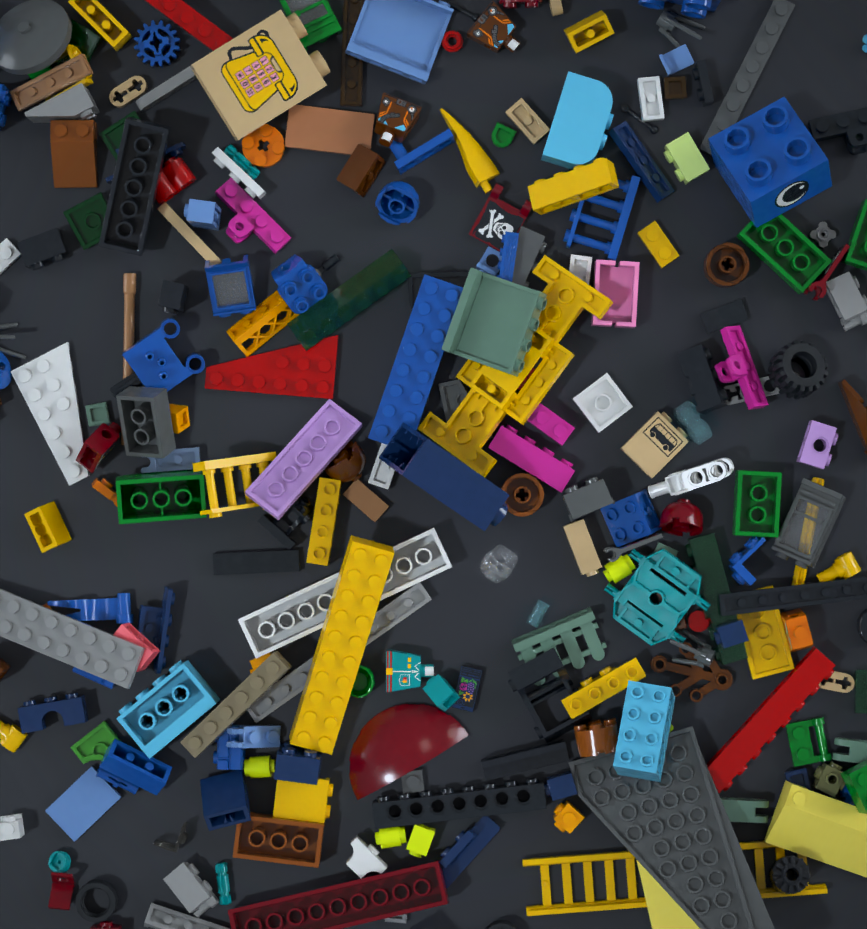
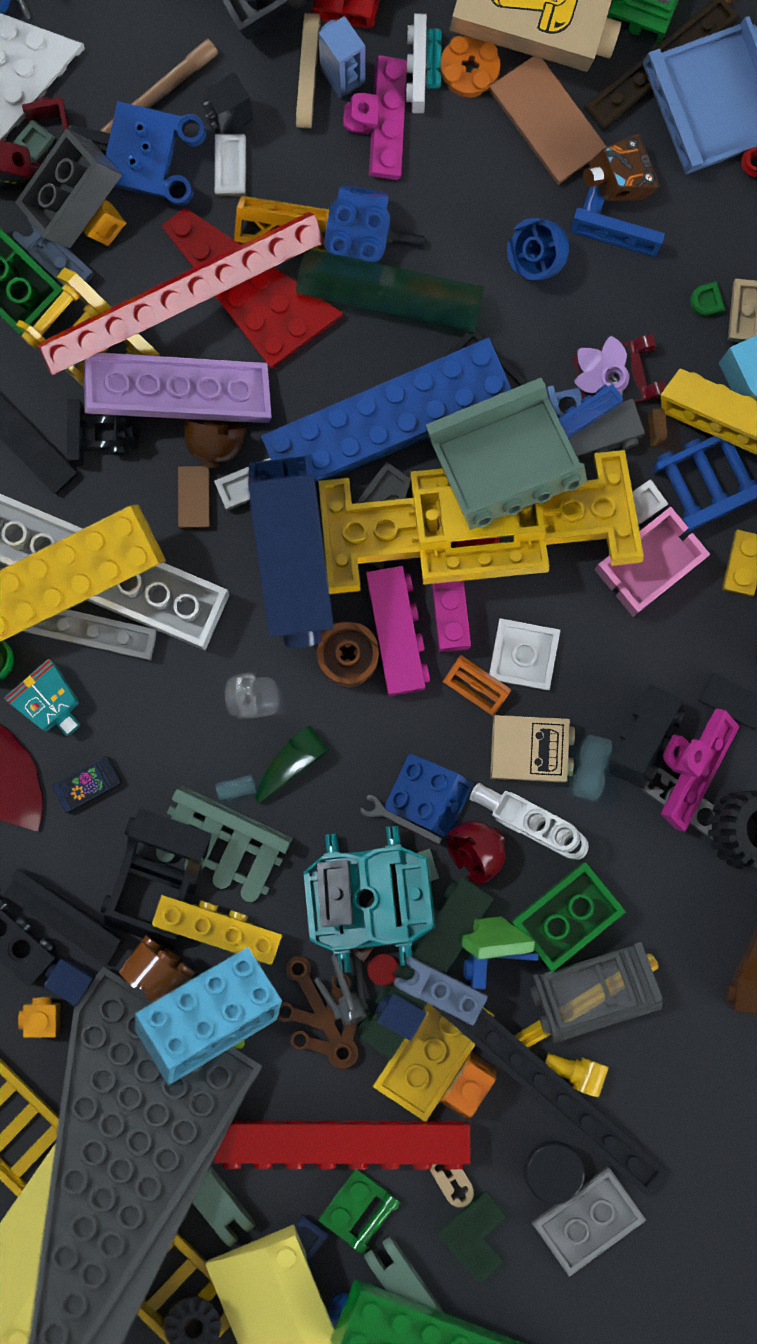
camera: 40 degrees right, 5 degrees down
(86, 391) = (46, 108): none -> dark red bracket
(203, 322) = (230, 165): none -> white tile
(230, 287) = (292, 155): window -> none
(257, 413) = (180, 293): none -> plate
(324, 521) = (130, 471): yellow brick -> none
(361, 170) = (537, 185): reddish brown panel -> none
(441, 692) = (56, 759): teal brick -> none
(475, 159) = (656, 296): yellow piece -> none
(487, 225) = (599, 365): none -> lavender plate
(547, 225) = (657, 426): none -> clear orange tile
(550, 573) = (291, 761): none -> dark green piece
(582, 547) = (349, 771): tan brick -> none
(586, 498) = (406, 725): dark grey brick -> none
(597, 438) = (477, 685): none -> orange tile
(619, 569) = (362, 831): neon yellow brick -> none
(640, 611) = (335, 893): none -> plate
(736, 551) = (496, 938): none -> bright green tile
(738, 602) = (442, 991): none -> sand blue plate
(807, 453) = (670, 926): lavender brick -> none
(821, 780) = (332, 1281): olive brick -> none

